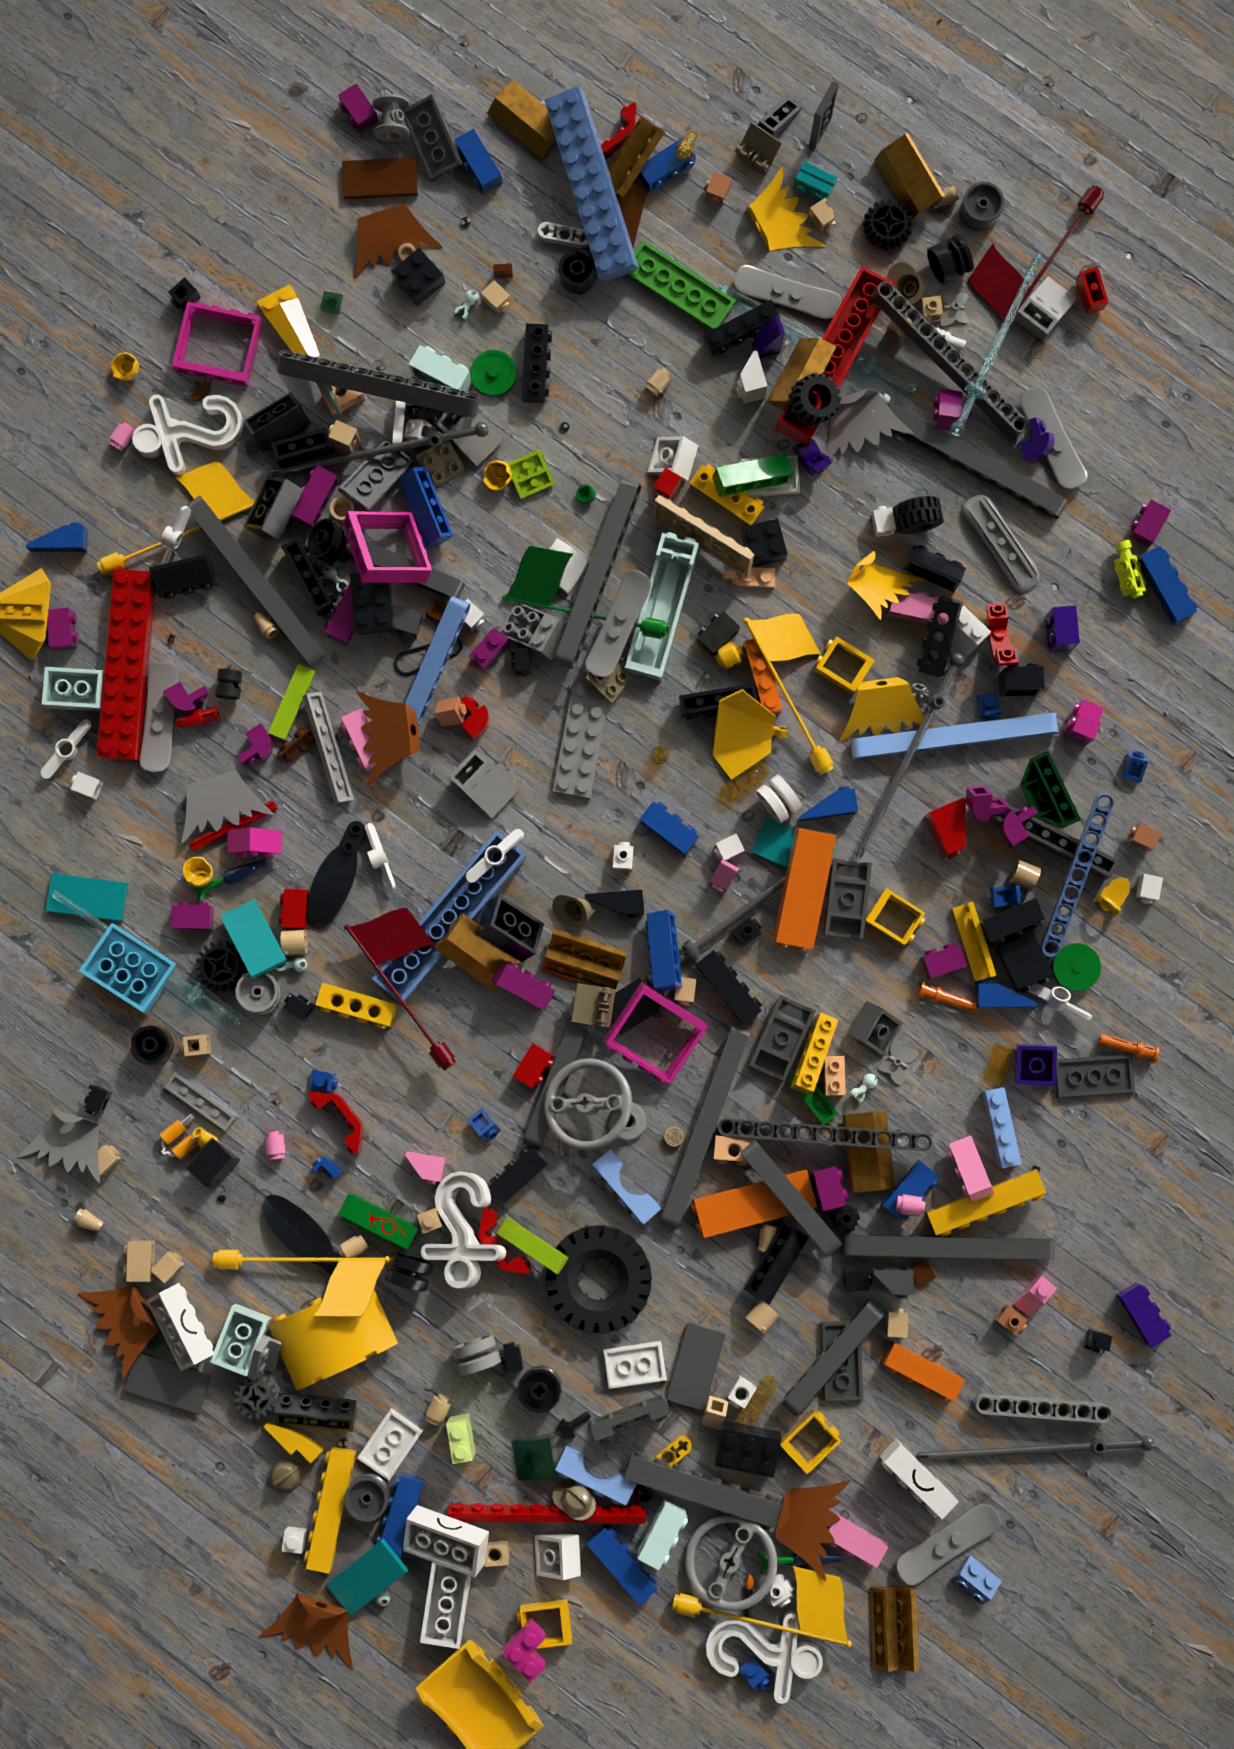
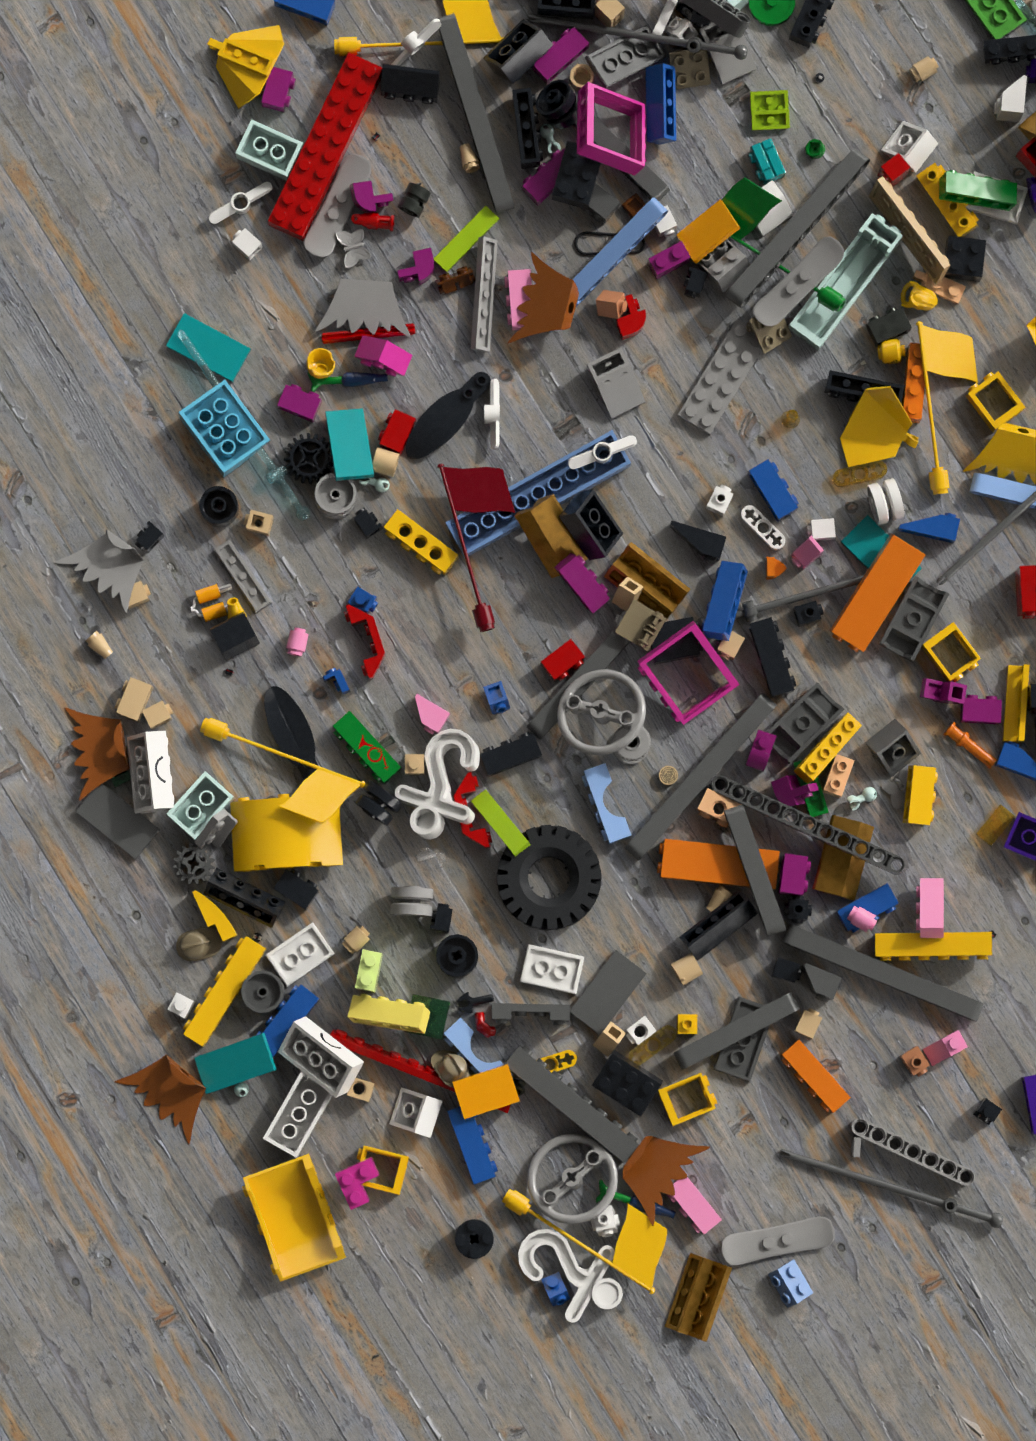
camera: 15 degrees right, 0 degrees up
(189, 749) = (355, 247): none -> light grey piece
(353, 1247) = (335, 762): tan brick -> none
(363, 1383) = (297, 889): none -> black brick
(495, 1472) = (388, 1013): none -> light yellow brick
(497, 475) = (738, 100): yellow hair -> none
(515, 608) = (708, 231): none -> light orange tile
(545, 522) = (767, 161): none -> teal brick
(568, 979) = (626, 593): none -> tan brick
(572, 910) = (653, 531): dark tan piece -> none
(590, 1447) = (482, 1027): none -> red arm
(616, 1512) = (486, 1091): none -> light orange tile
(662, 1534) = (520, 1128): light aqua brick -> none
(666, 1666) = (485, 1238): none -> black brick
(671, 859) = (776, 534): none -> white beam
(697, 901) = (773, 568): none -> orange tile
(737, 595) = (920, 297): none -> yellow piece
(749, 1584) = (579, 1209): piece -> none
(752, 1080) = (760, 750): none -> magenta brick
(782, 1369) = (687, 1024): none -> yellow brick
(794, 1109) = (790, 793): none -> magenta brick
(902, 957) = (943, 692): none -> magenta brick
(917, 1064) = (919, 795): none -> yellow brick
(922, 1272) = (849, 987): reddish brown tile -> none
(923, 1484) = (773, 1169): white brick -> none
(987, 1425) = (855, 1147): none -> light grey tile
(1004, 1135) = (975, 882): light blue arch -> none

